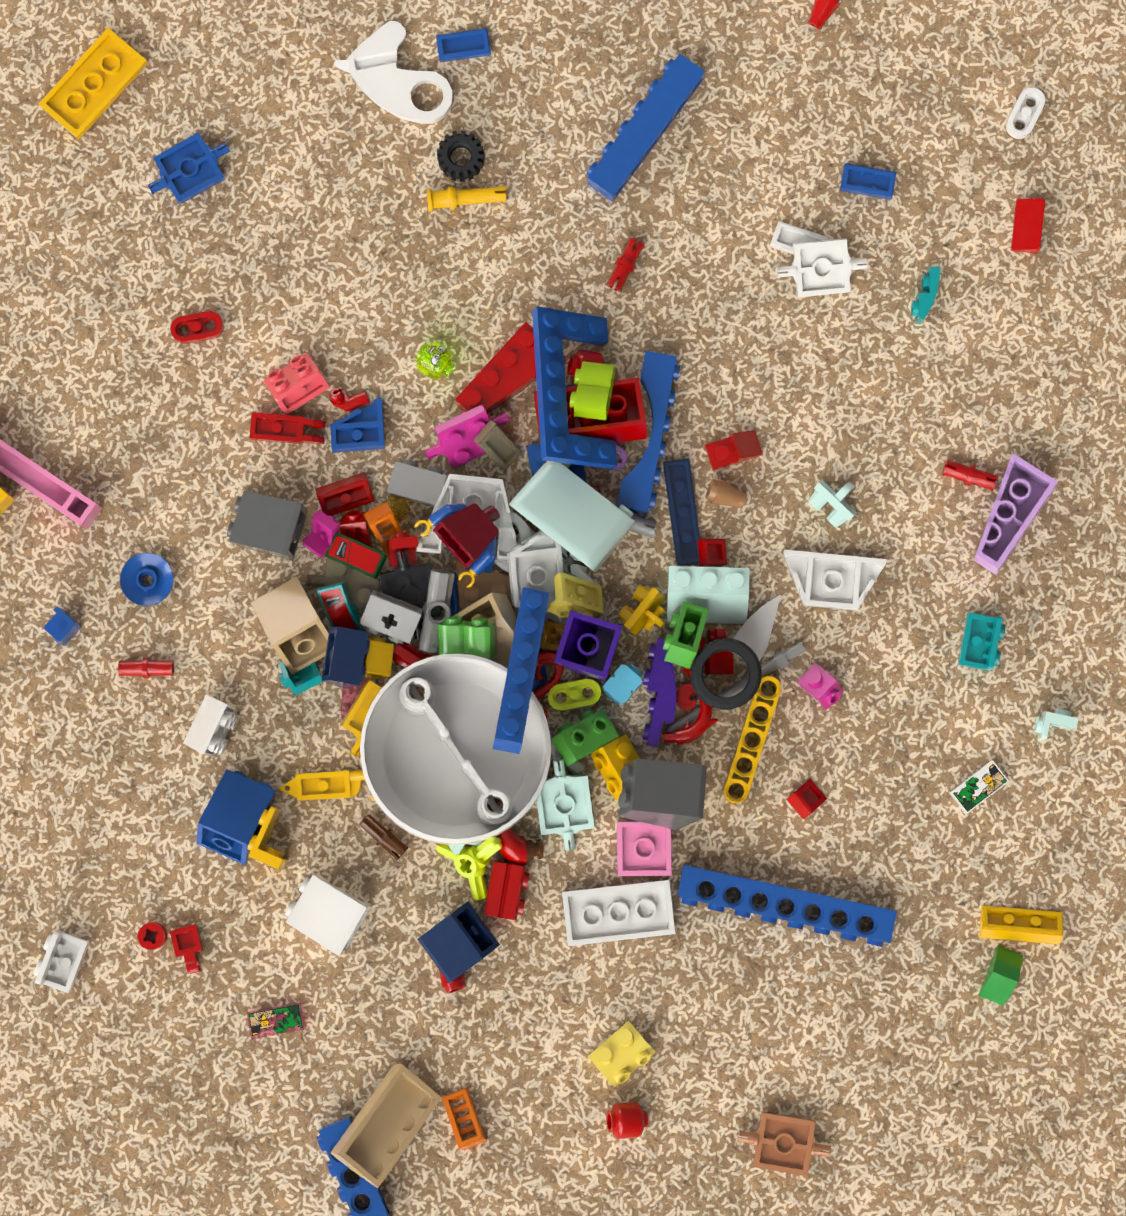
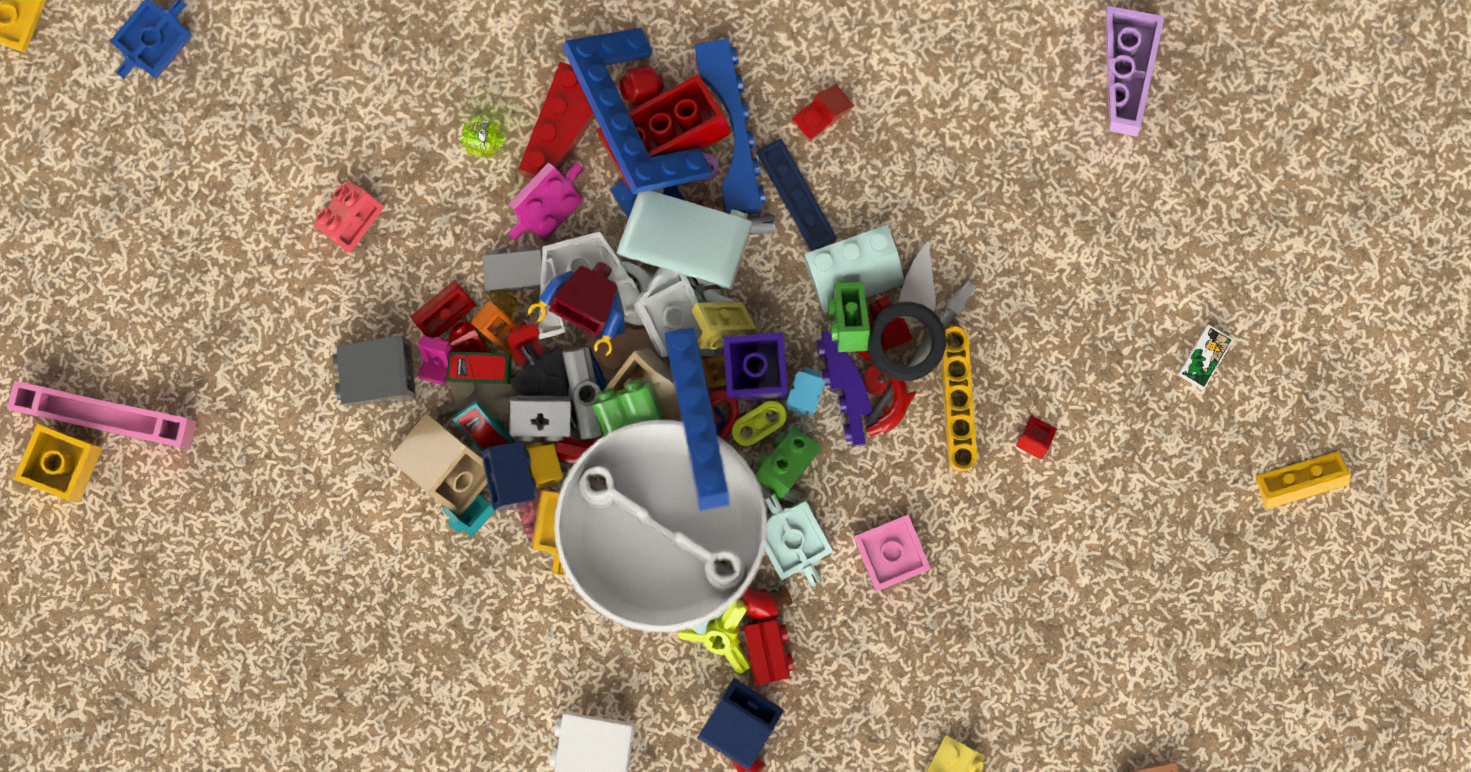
camera: 25 degrees left, 0 degrees up
(62, 626) = (202, 559): blue panel -> none
(133, 577) = (256, 474): blue dish -> none
(146, 668) = (306, 568): red pin -> none
(197, 327) = (222, 195): red plate -> none
(211, 727) = (398, 602): white slope -> none
(234, 815) = (458, 685): blue slope -> none
(268, 855) = (511, 711): yellow bracket -> none
(284, 428) = (354, 267): red hinge -> none
(325, 785) = (540, 616): yellow plate -> none
(346, 402) = (408, 215): red arm -> none
(359, 430) = (432, 238): blue wing -> none
(383, 836) = (620, 646): reddish brown axle -> none
(497, 445) = (580, 199): dark tan tile -> none
(593, 391) = (657, 104): lime brick -> none
(611, 760) = (835, 479): yellow bracket -> none
(618, 912) = (891, 628): white plate -> none
(646, 613) = (800, 311): yellow hips -> none
(662, 792) = (890, 487): dark grey slope -> none
(712, 552) = (842, 224): red tile -> none
(724, 494) = (832, 160): medium nougat cone -> none
(821, 686) = (1006, 317): dark pink bracket -> none
(825, 494) = (933, 121): light aqua hips -> none
(832, 578) = (974, 204): white wing -> none
(882, 919) = (1162, 530): blue brick -> none
(970, 475) = (1071, 46): red pin -> none
(981, 642) = (1150, 209): teal bracket -> none
(1001, 975) = (1304, 539): green slope -> none
(1060, 719) = (1259, 256): light aqua bracket -> none

